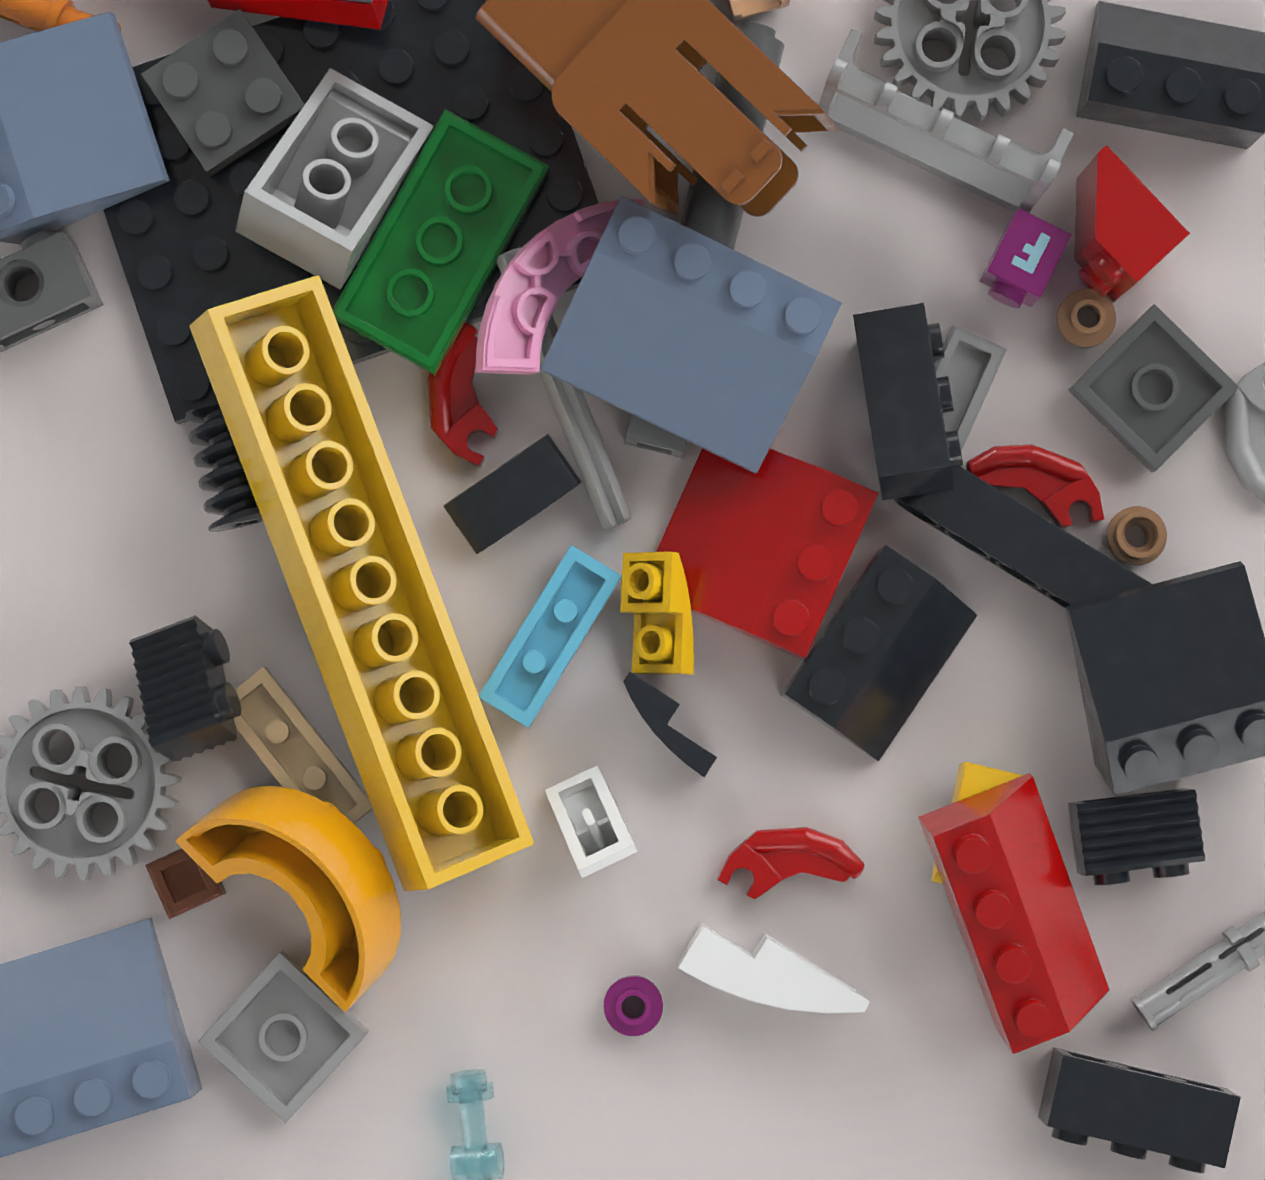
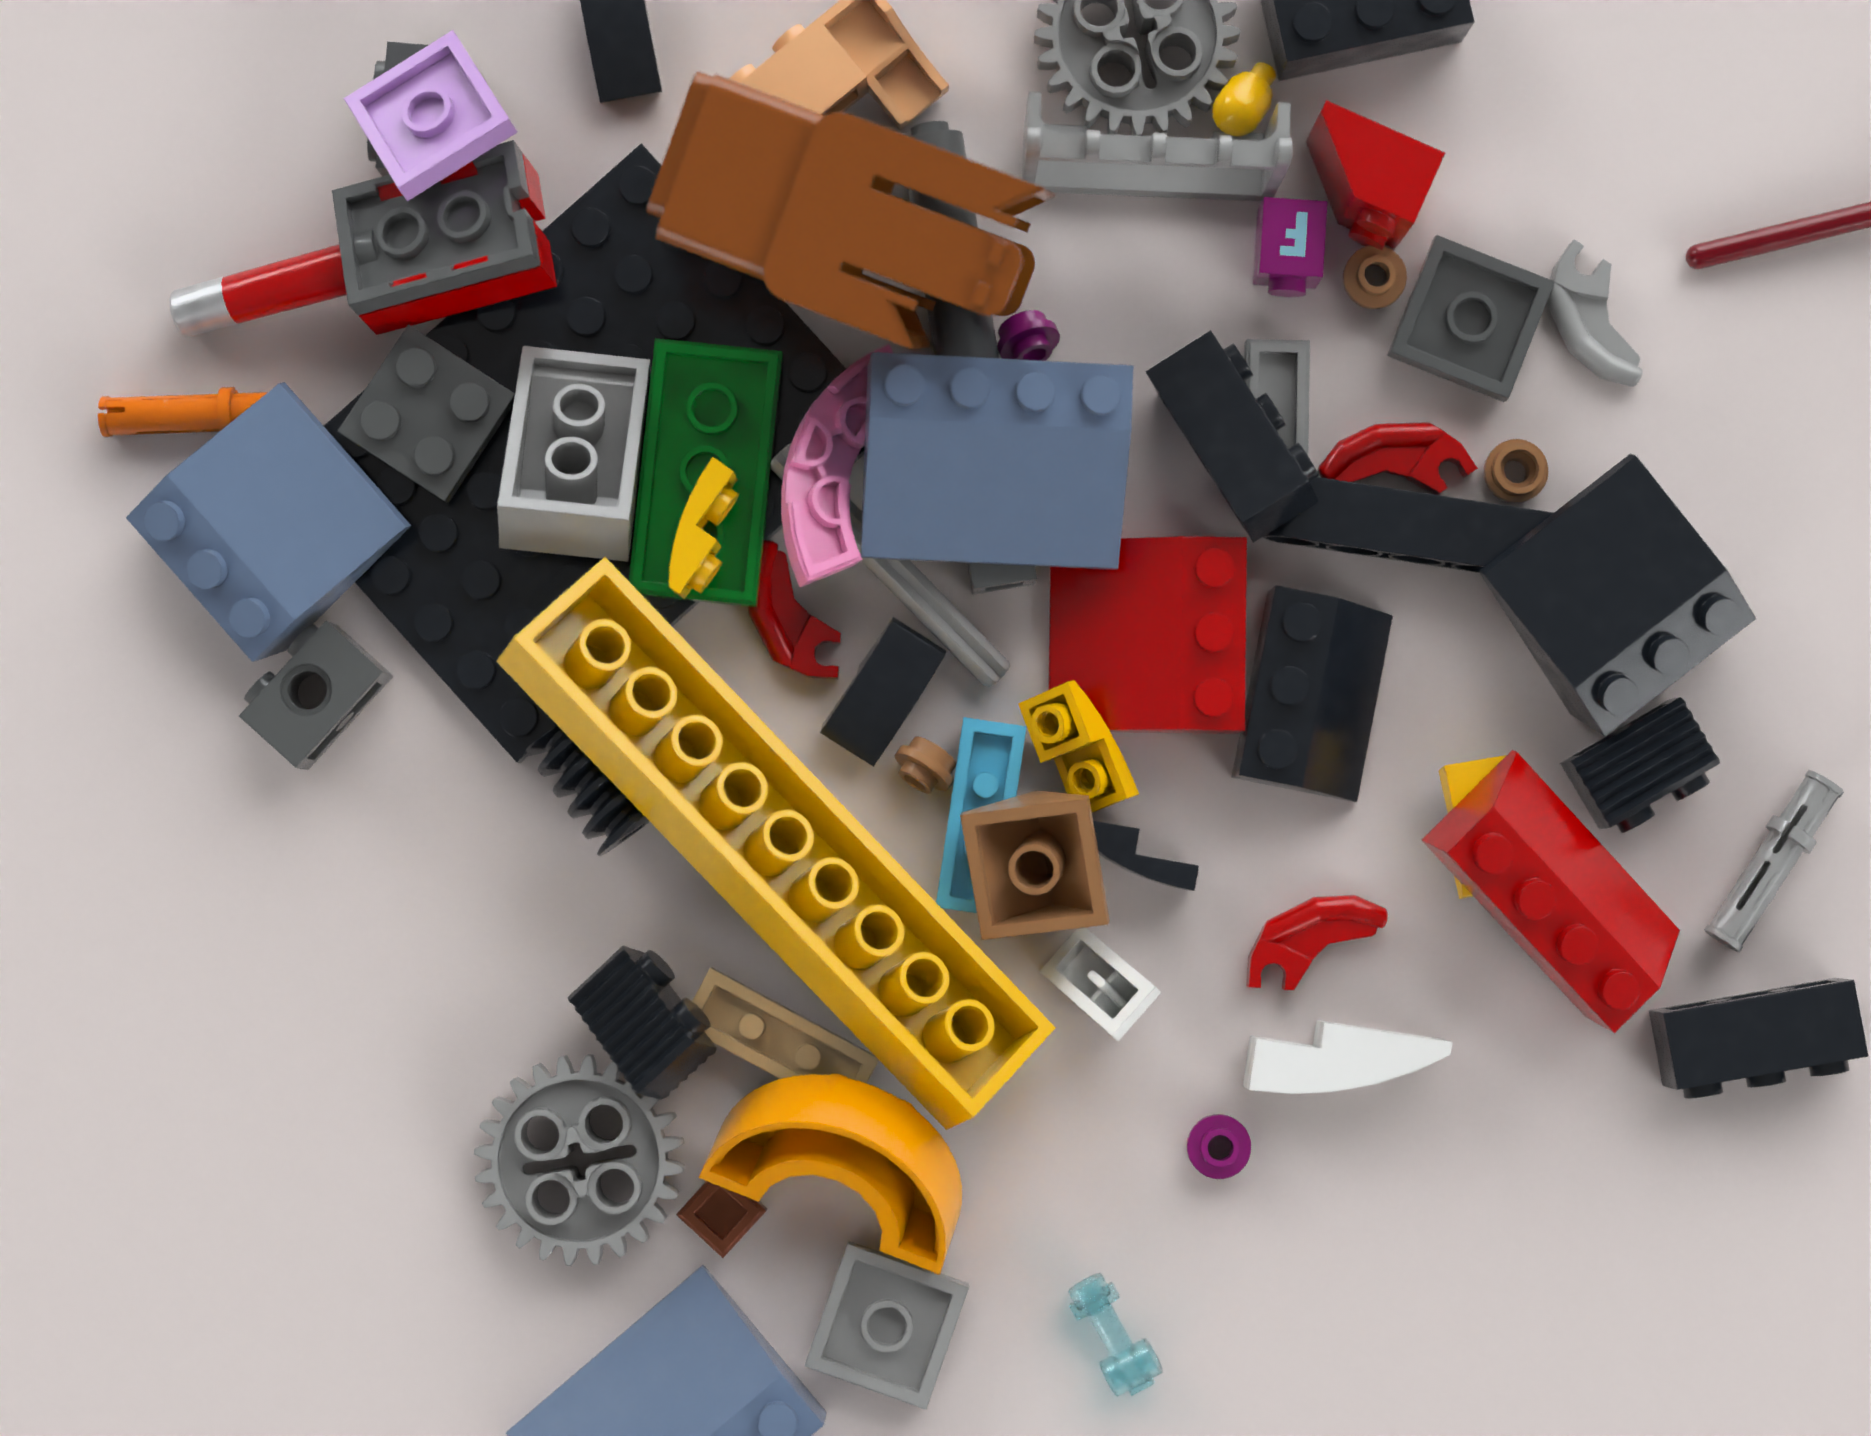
camera: 25 degrees left, 0 degrees up
(397, 304) = (694, 550): none -> yellow slope
(521, 572) = (925, 765): none -> medium nougat plate
(576, 696) = (1034, 865): none -> medium nougat slope
(766, 242) = (1027, 336): none -> magenta plate
(1038, 119) = (1244, 100): none -> yellow cylinder

